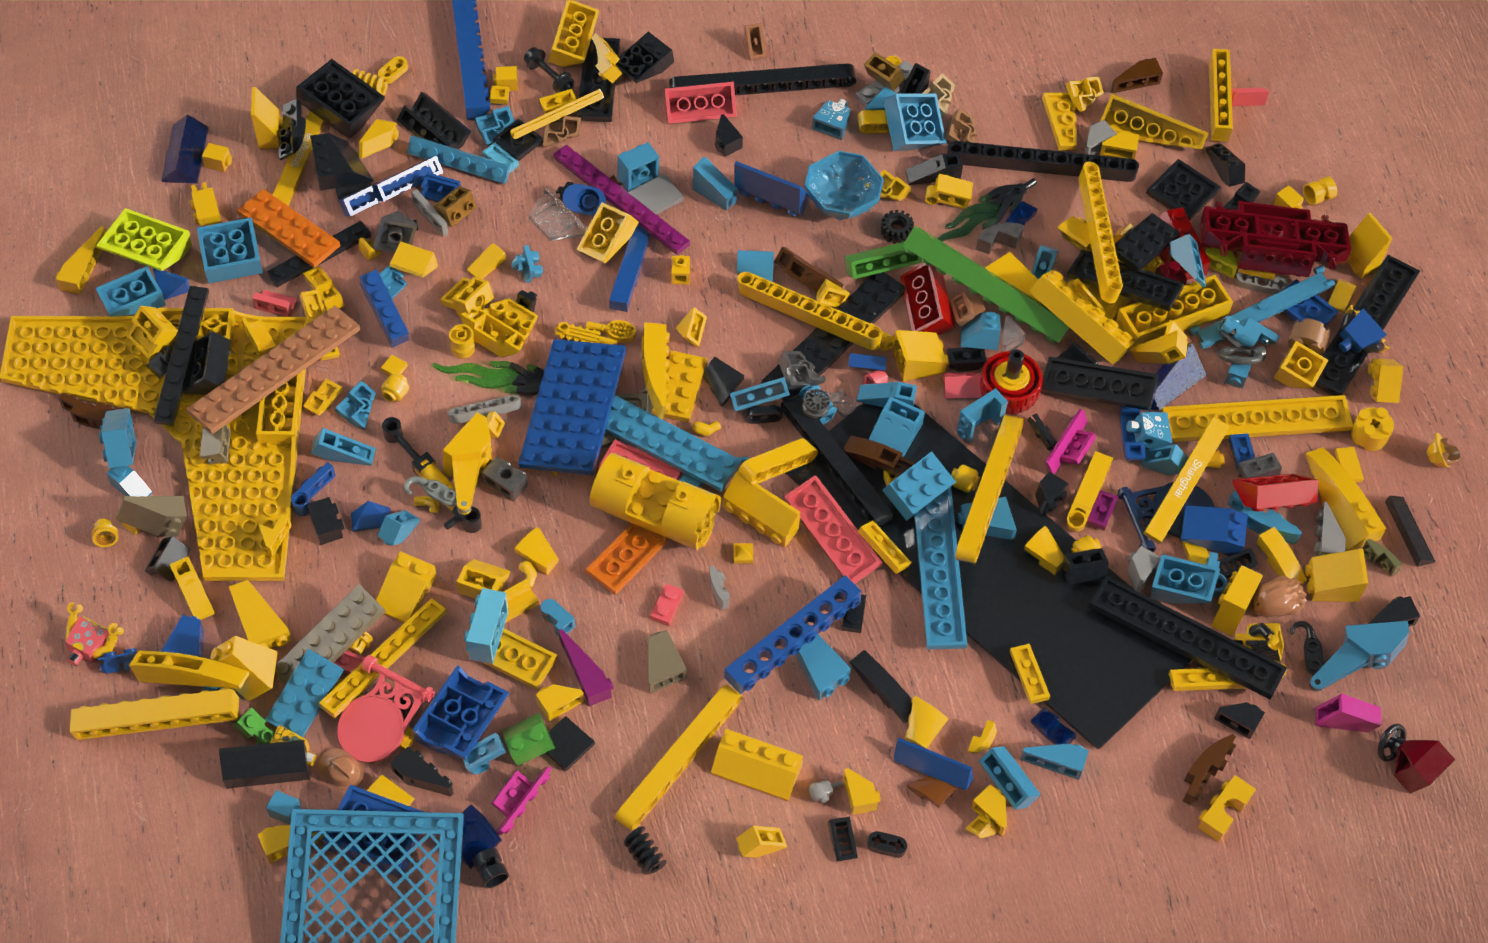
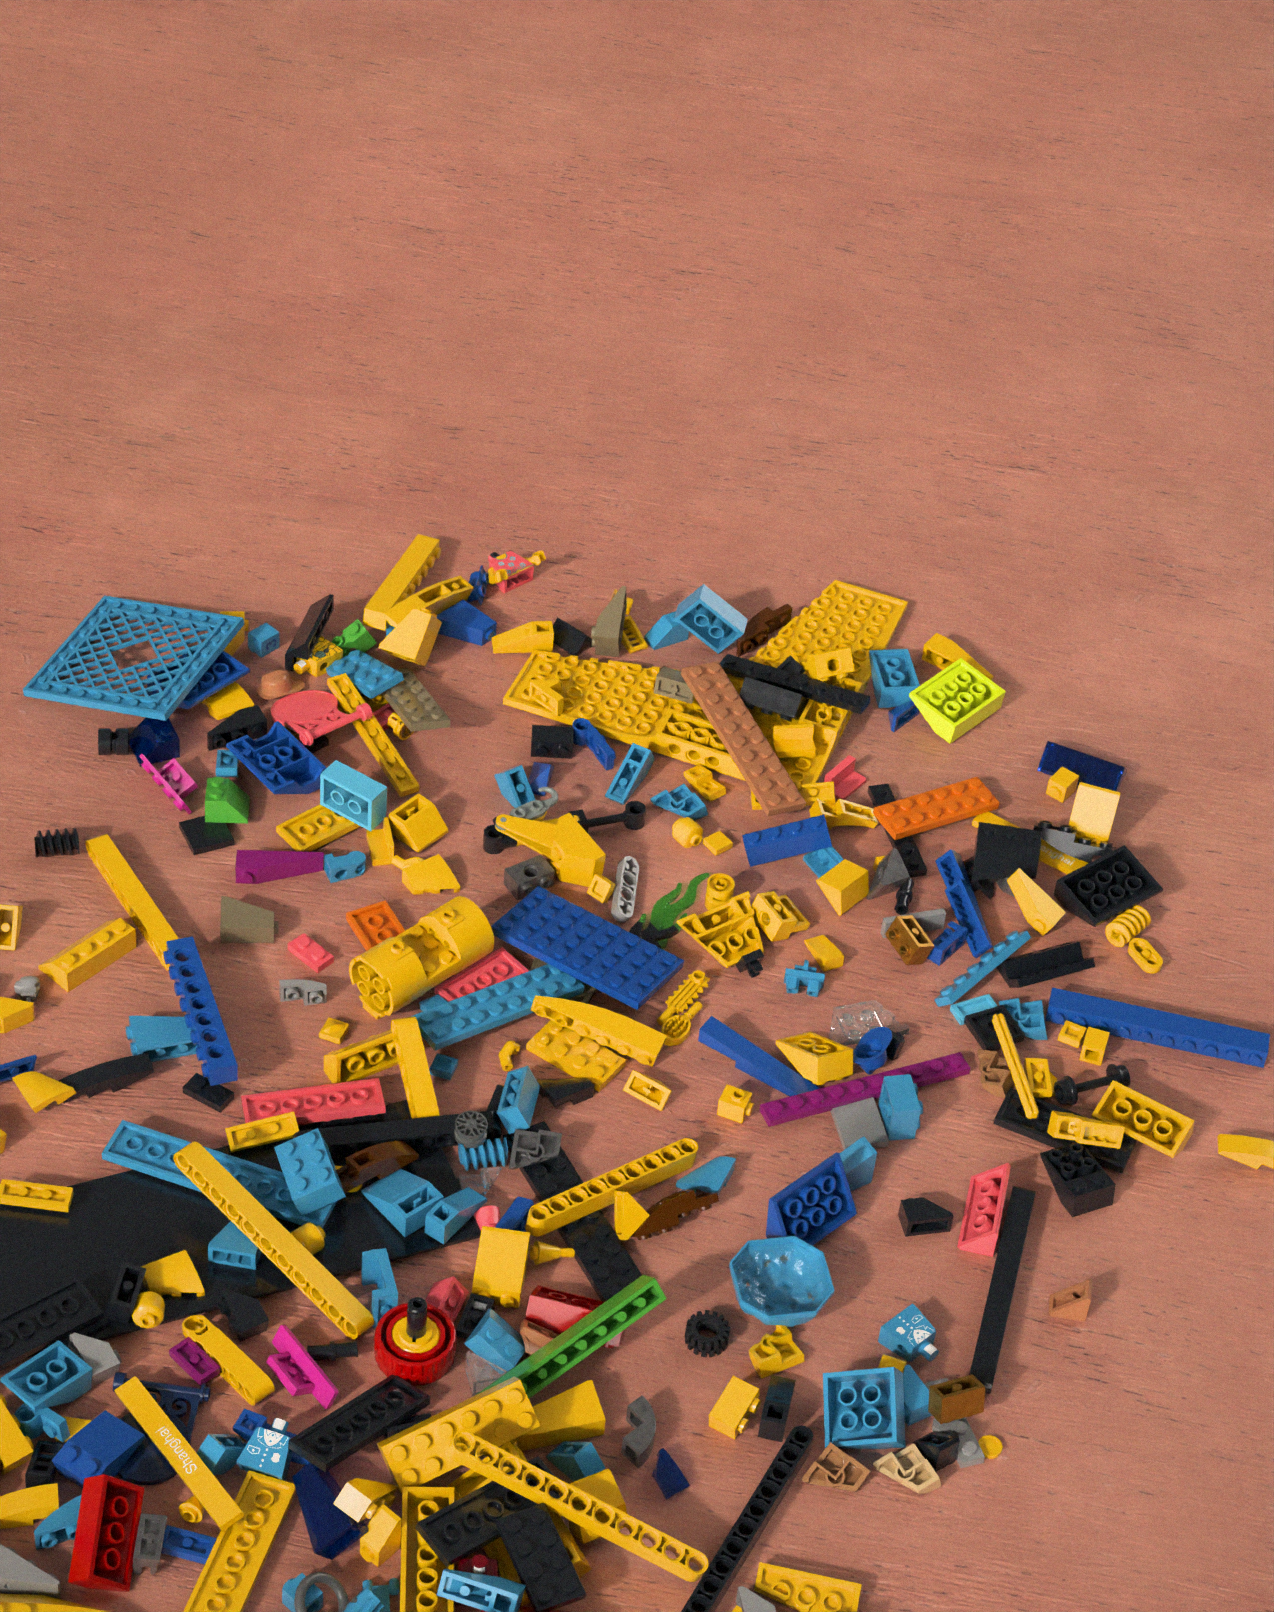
camera: 110 degrees right, 15 degrees down
(205, 206) = (996, 760): yellow hinge -> none
(229, 250) = (923, 757): dark azure slope -> none
(258, 618) = (469, 672): yellow slope -> none
(405, 586) = (446, 776): yellow slope -> none
(558, 699) = (254, 833): yellow slope -> none
(879, 260) = (664, 1266): bright green brick -> none
(994, 209) = (691, 1452): clear green piece -> none

